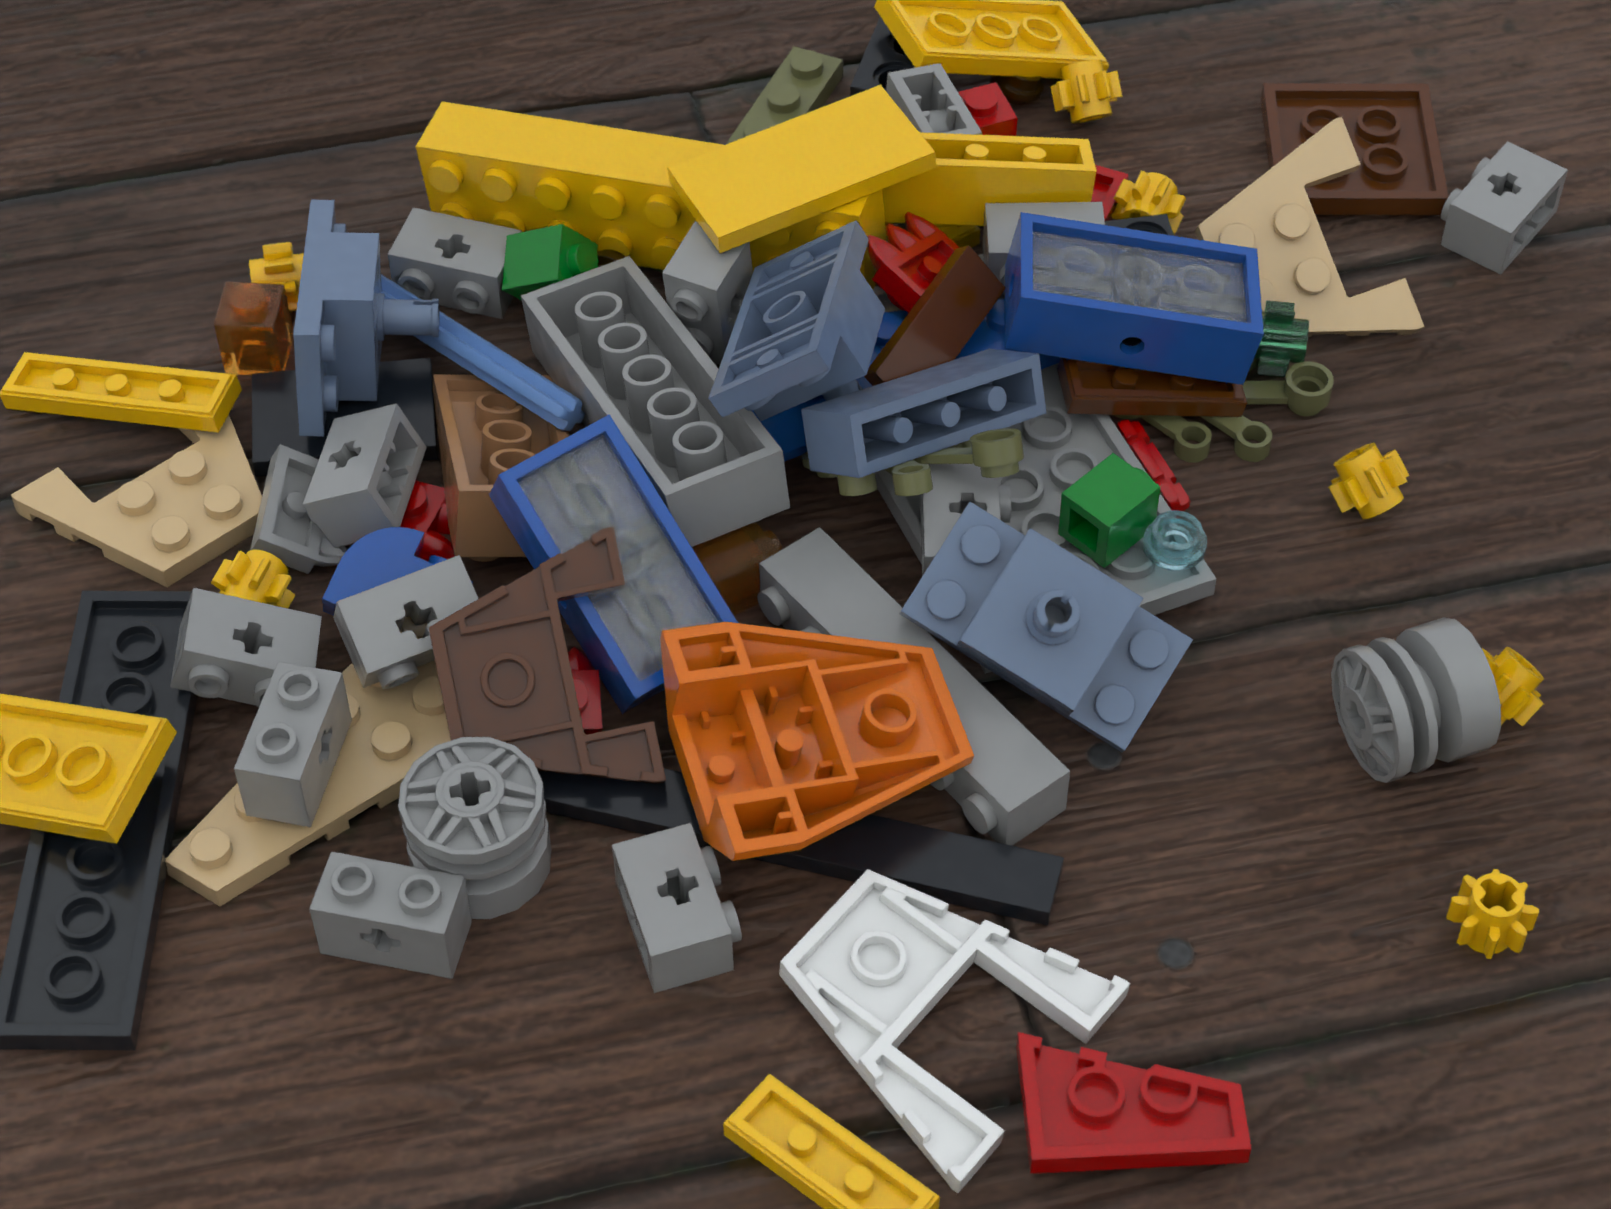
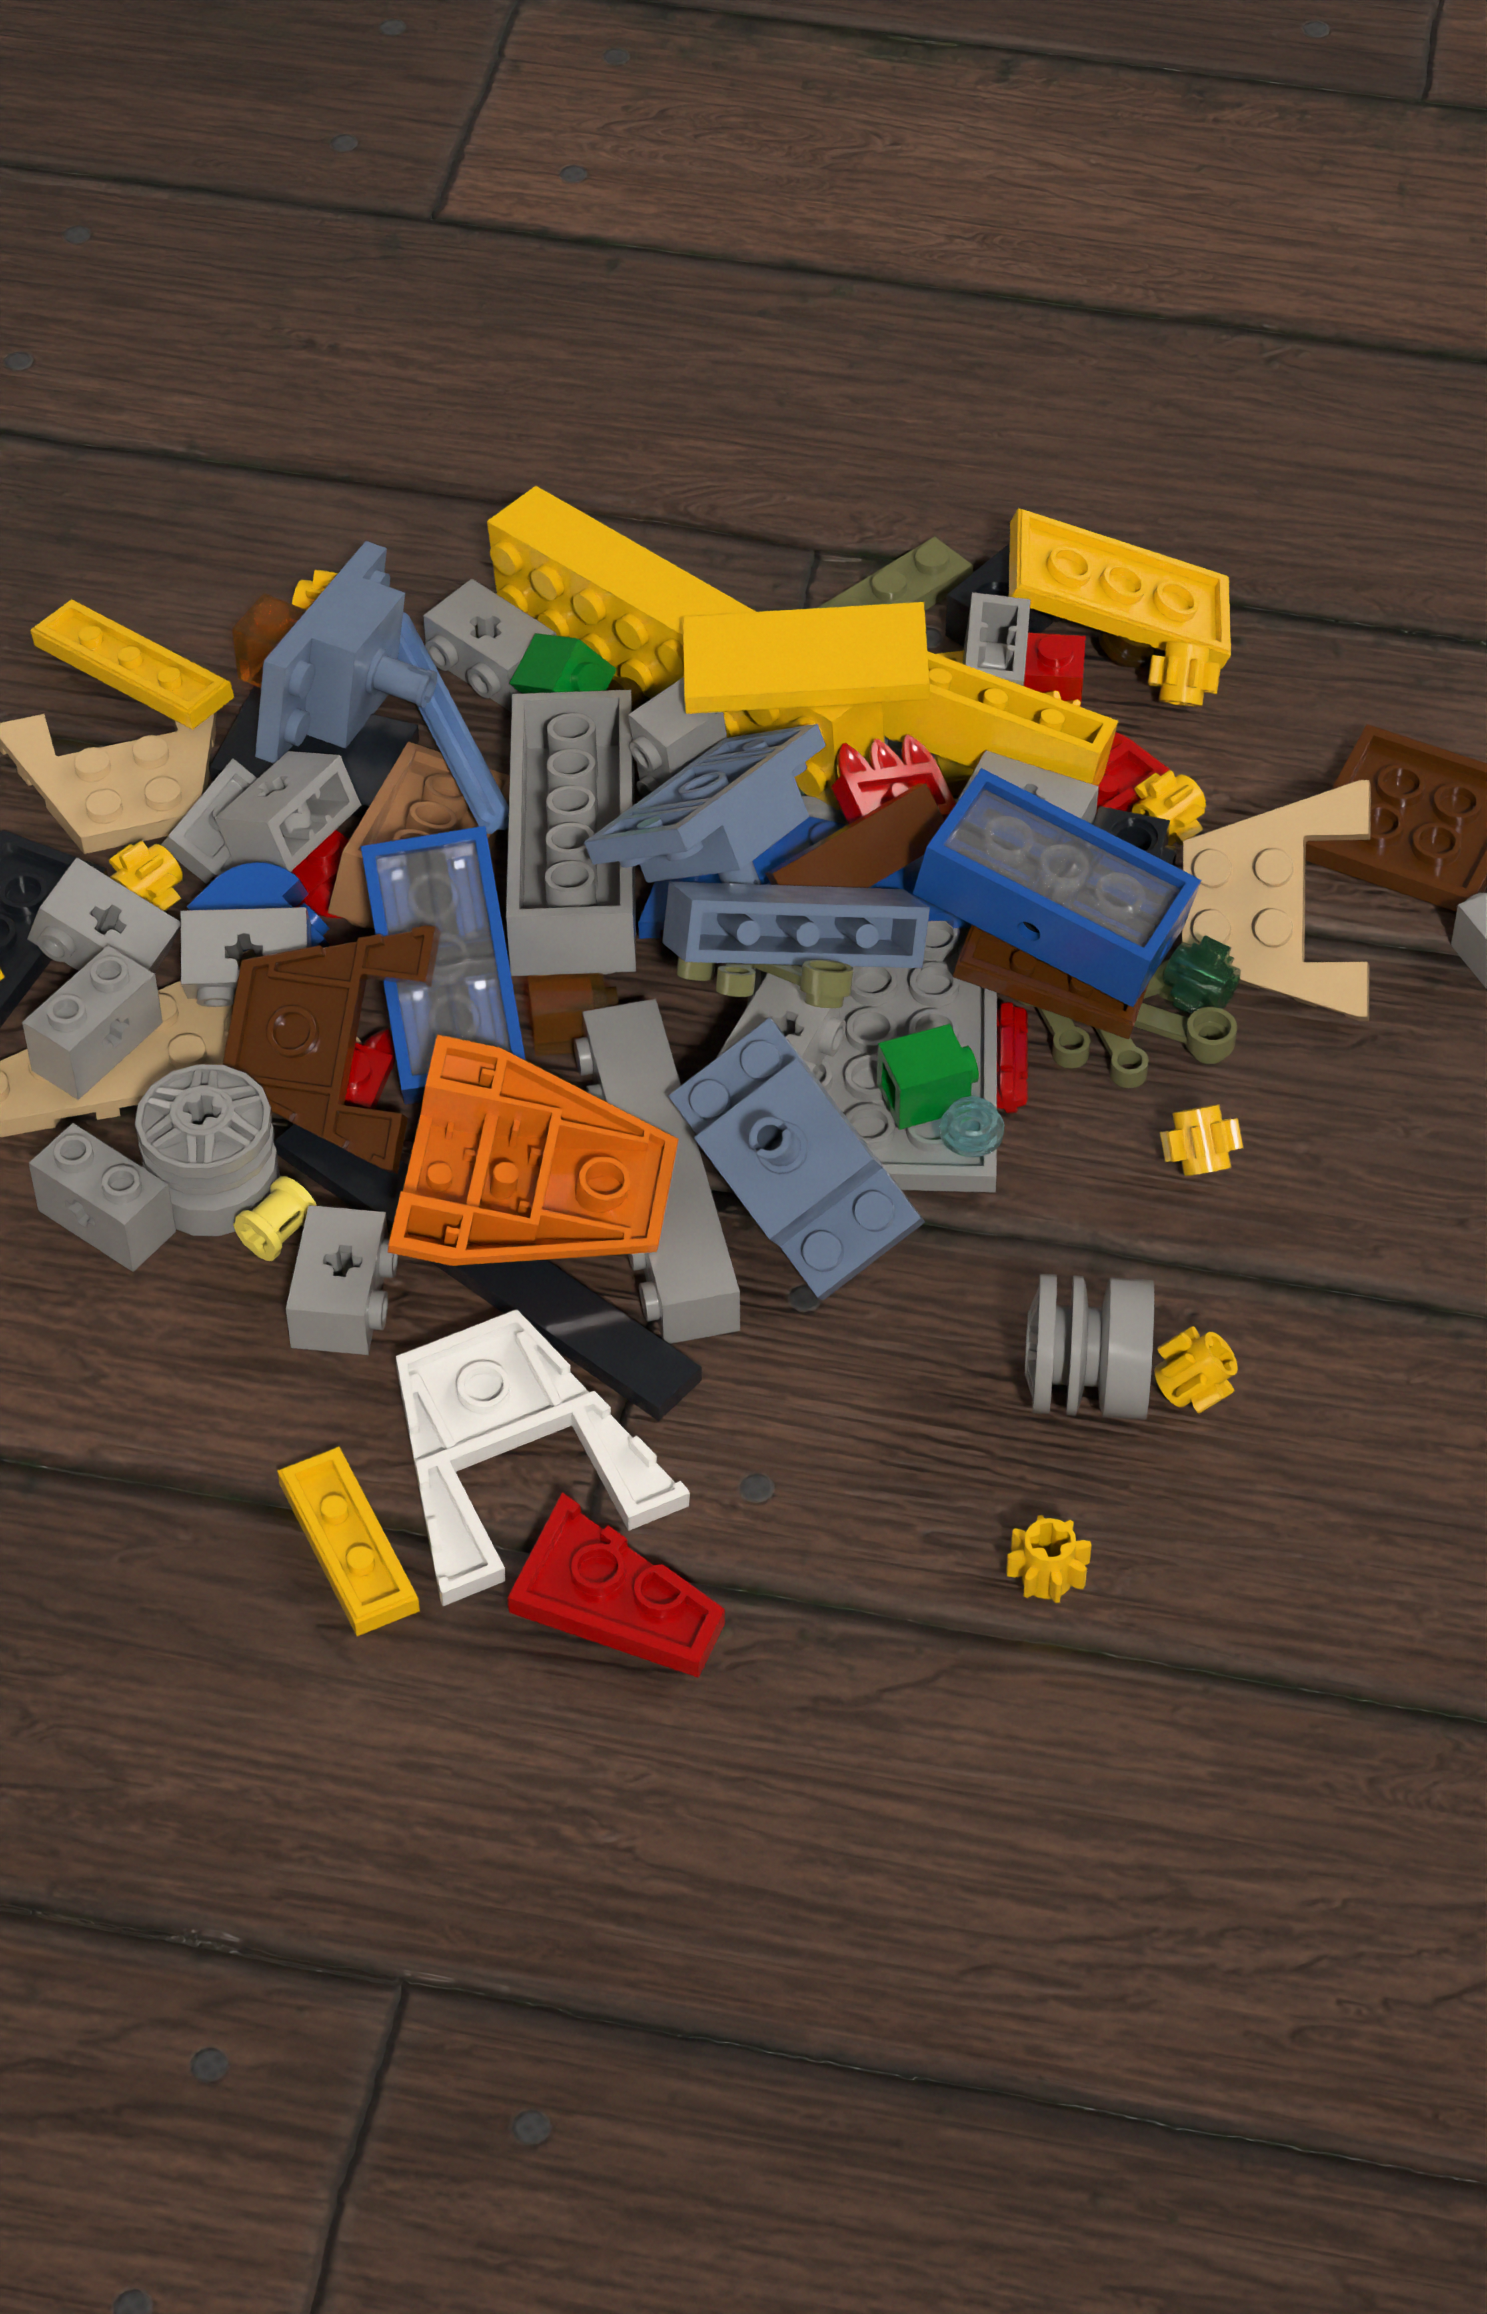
camera: 25 degrees right, 0 degrees up
(574, 870) = (274, 1218): none -> light yellow bush

